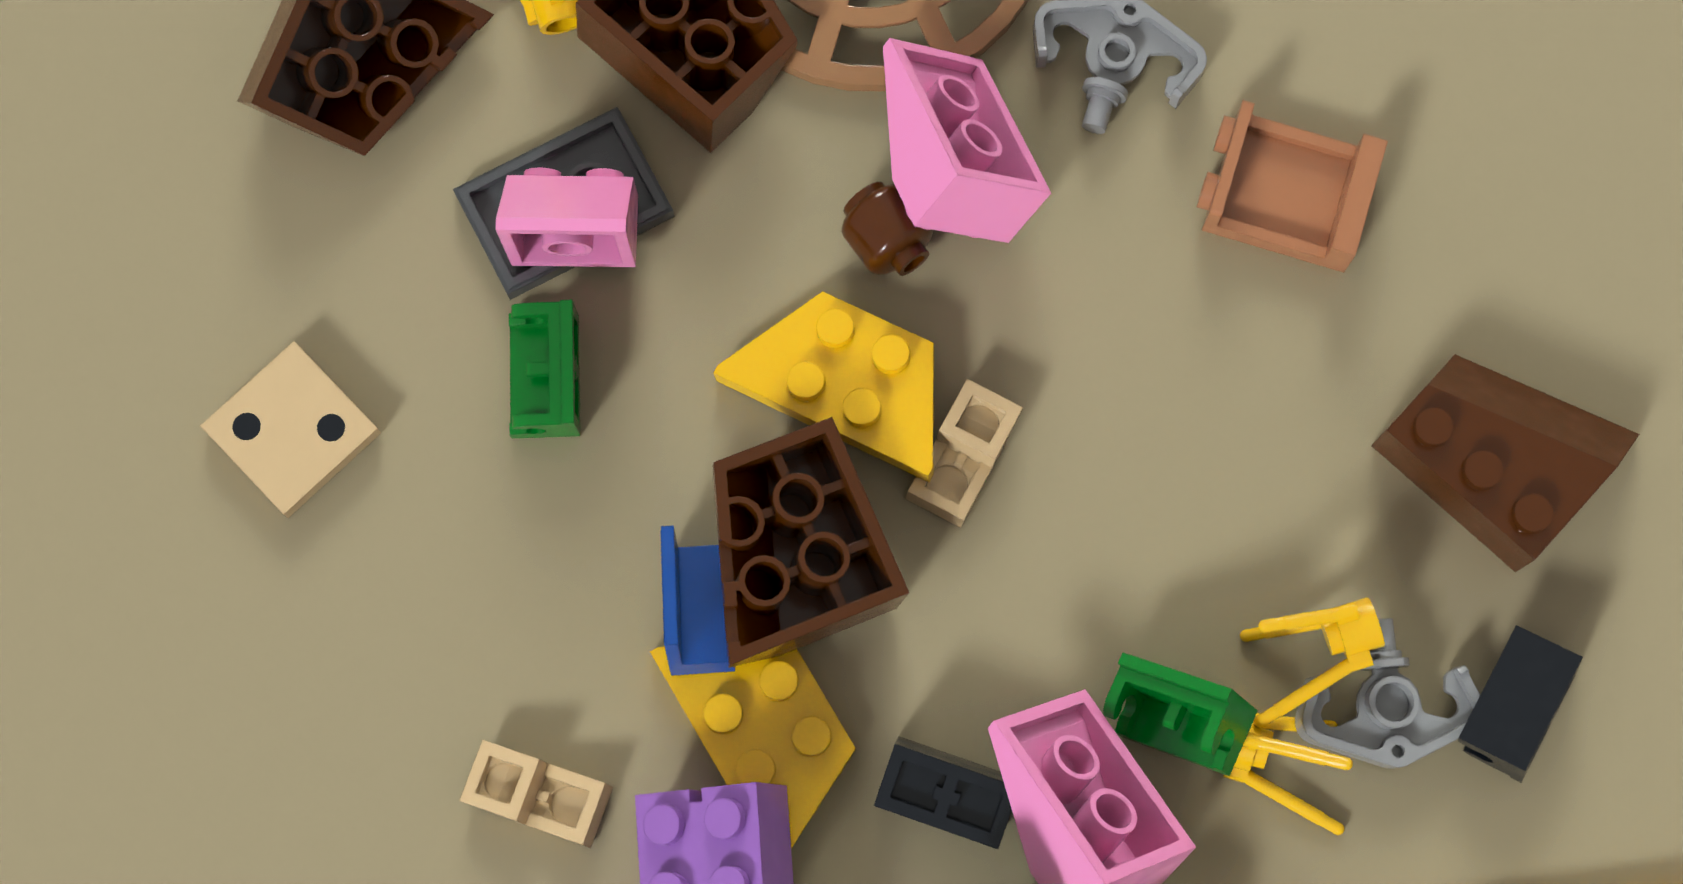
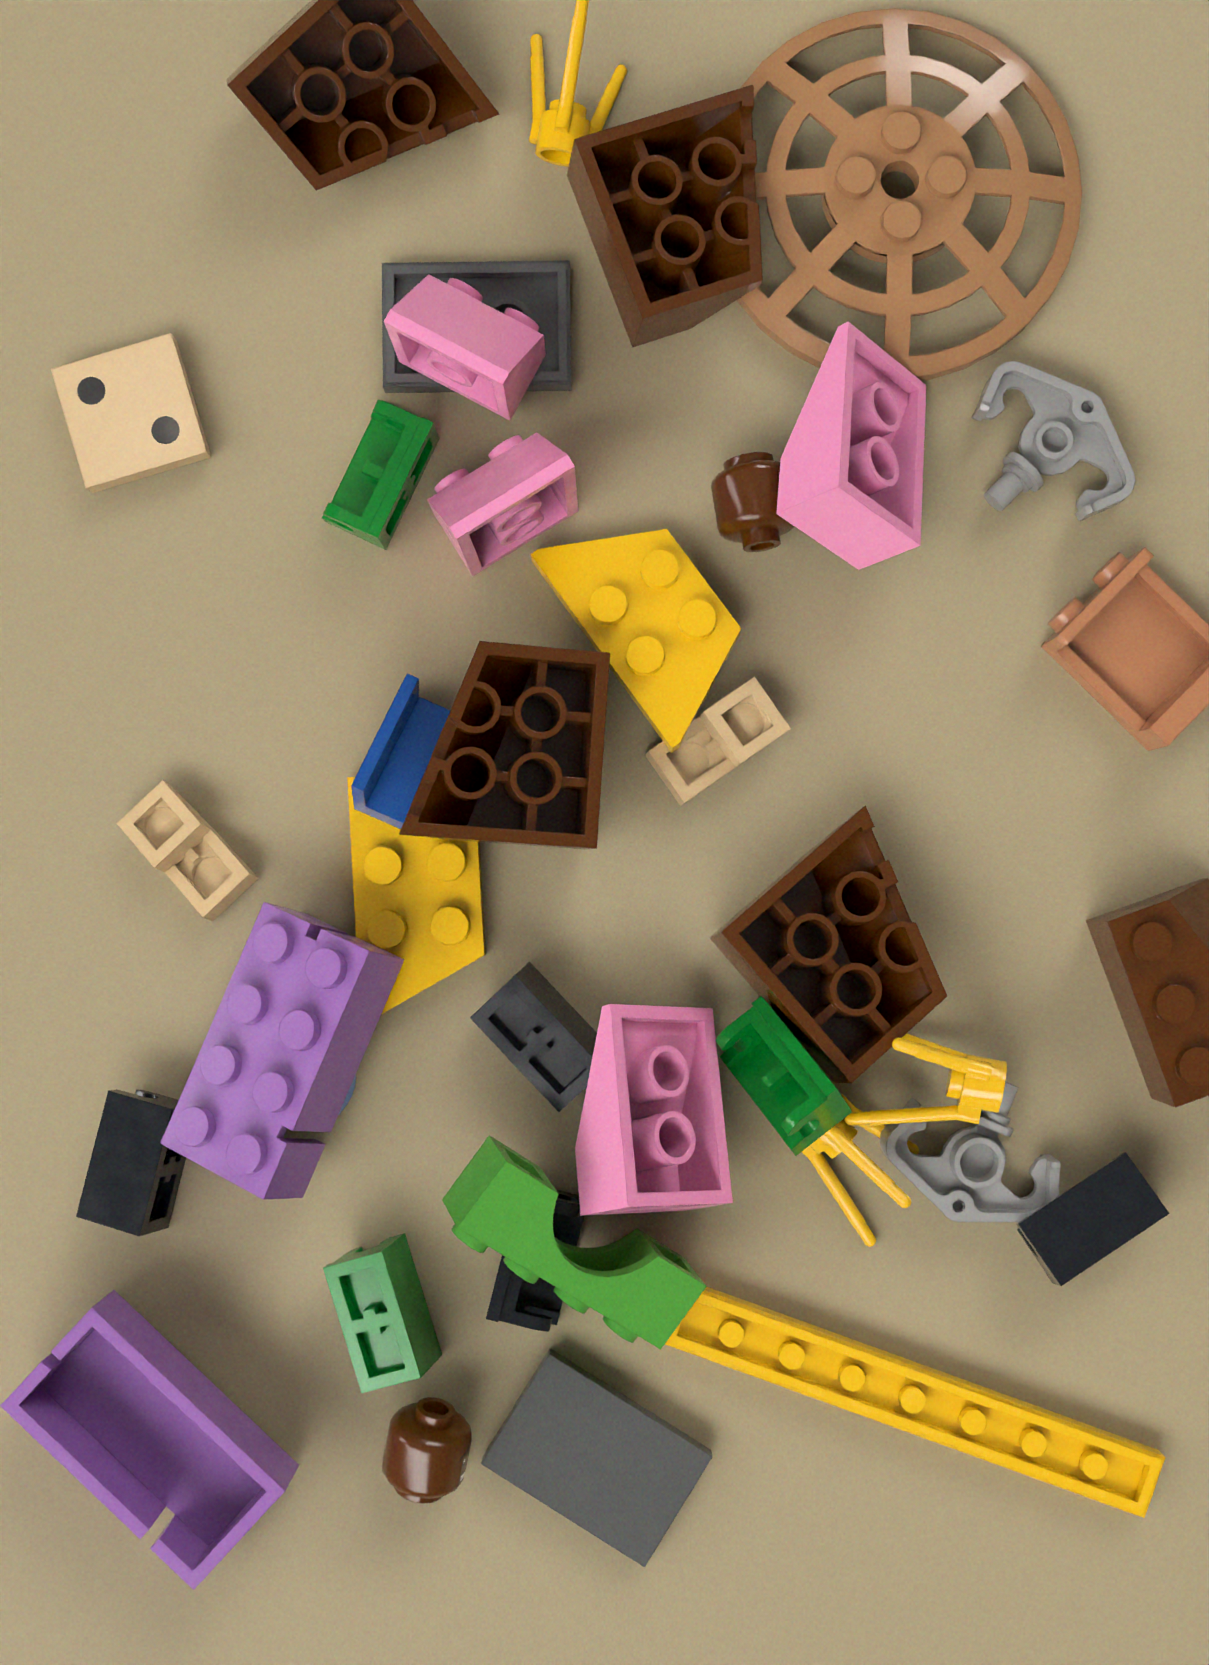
camera: 30 degrees right, 10 degrees up
(670, 335) = (506, 500): none -> bright pink slope
(1167, 578) = (836, 952): none -> reddish brown wedge

